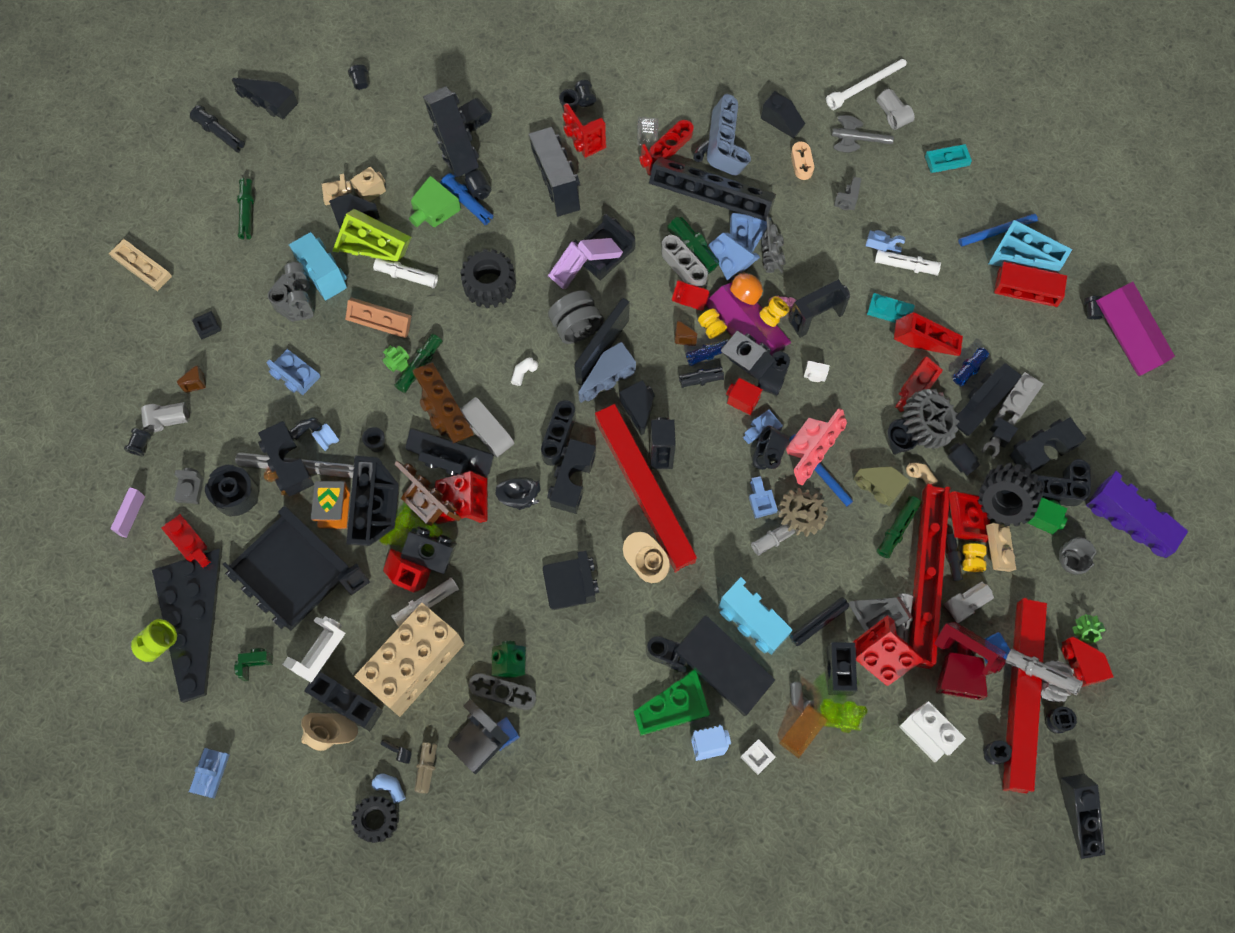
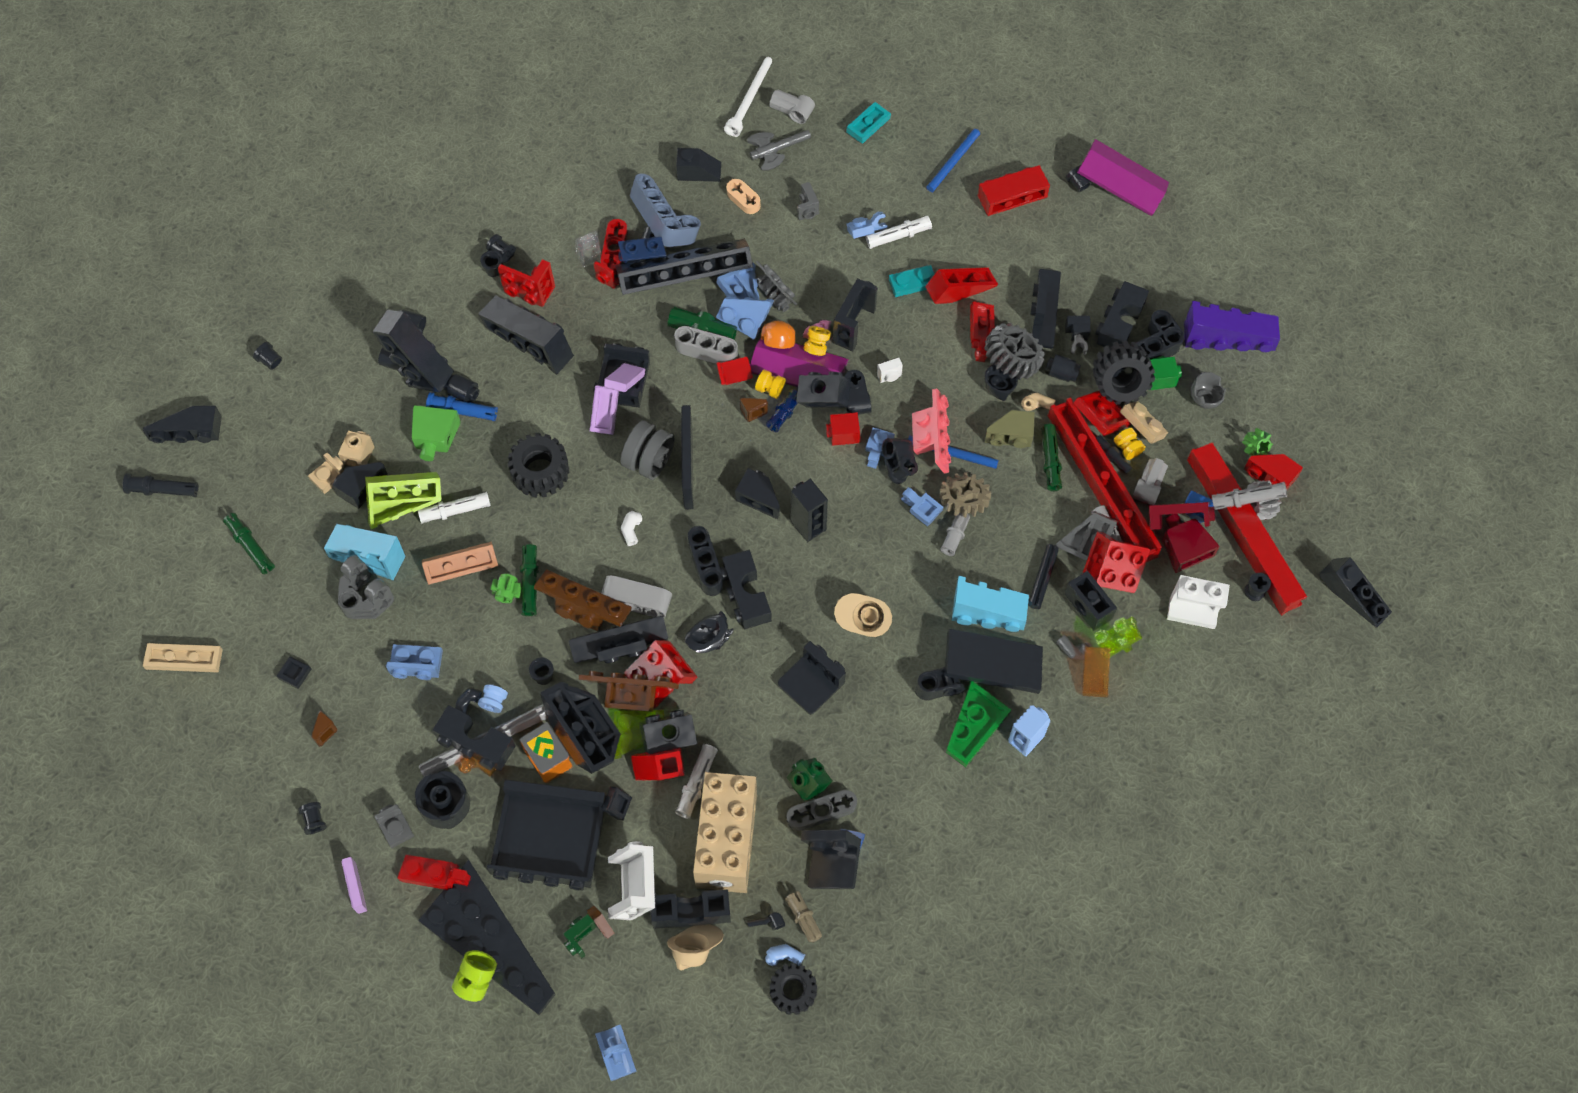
camera: 35 degrees left, 5 degrees down
(156, 416) = (314, 784): light grey piece -> none
(275, 663) = (600, 921): none -> tile
(610, 368) = (711, 472): sand blue slope -> none
(645, 488) = (813, 557): red tile -> none
(687, 155) = (641, 249): none -> dark blue hinge
(701, 377) = (794, 436): black pin -> none
(758, 756) = (1074, 717): white plate -> none
(971, 366) = (1014, 288): clear blue pin -> none
(1020, 397) = (1071, 290): light grey hinge -> none
(1030, 249) = (993, 160): medium azure wedge -> none
(1055, 720) = (1283, 533): black wheel -> none

